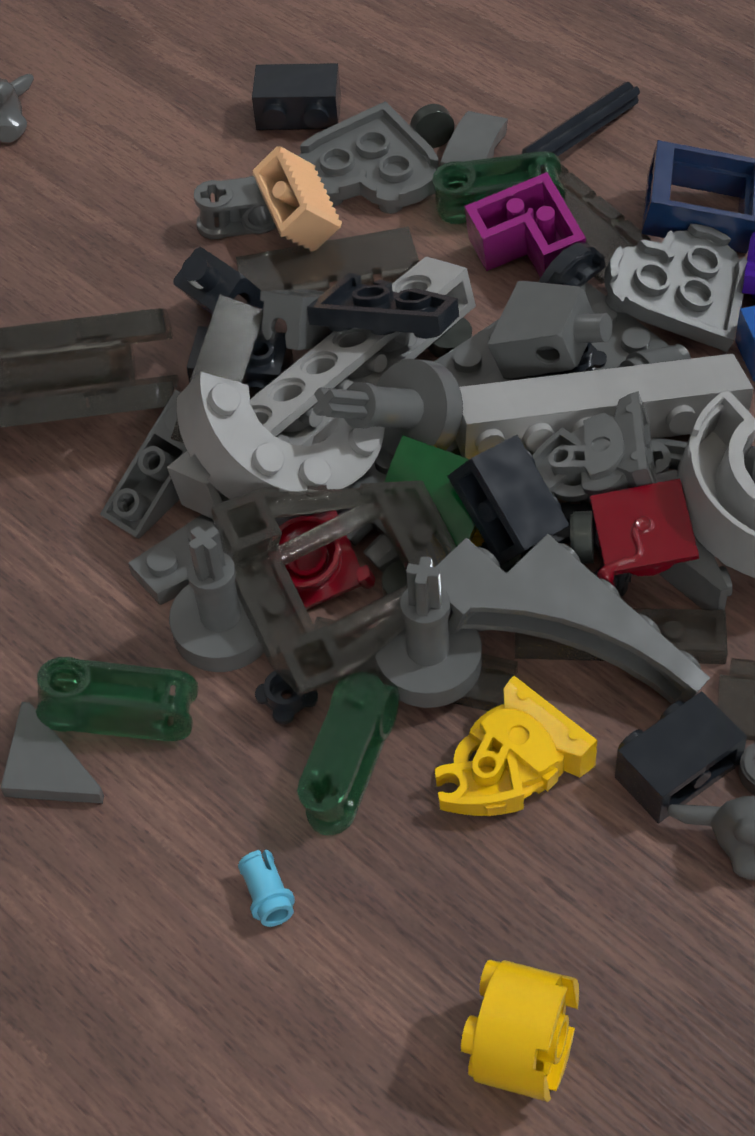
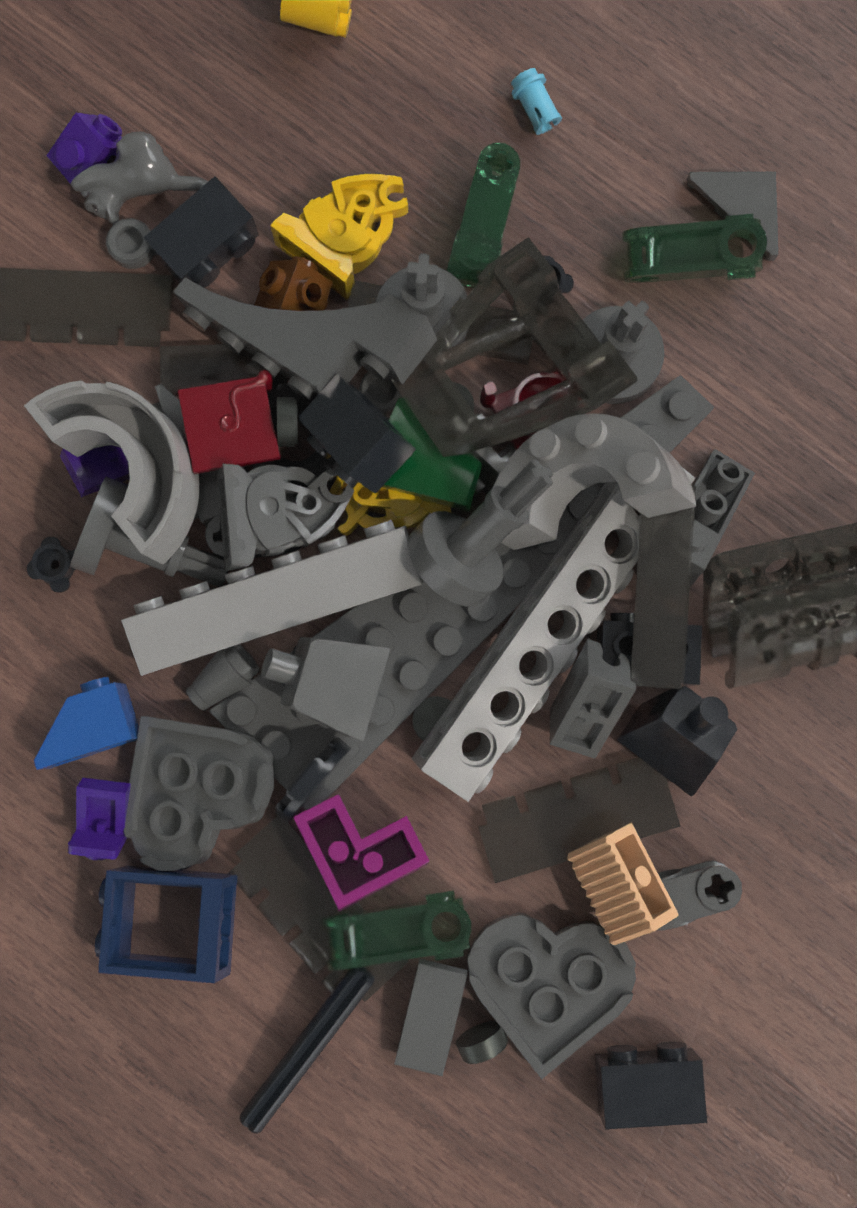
camera: 170 degrees right, 30 degrees up
(381, 309) = (507, 686): black wing -> none
(576, 676) = (293, 286): none -> reddish brown brick

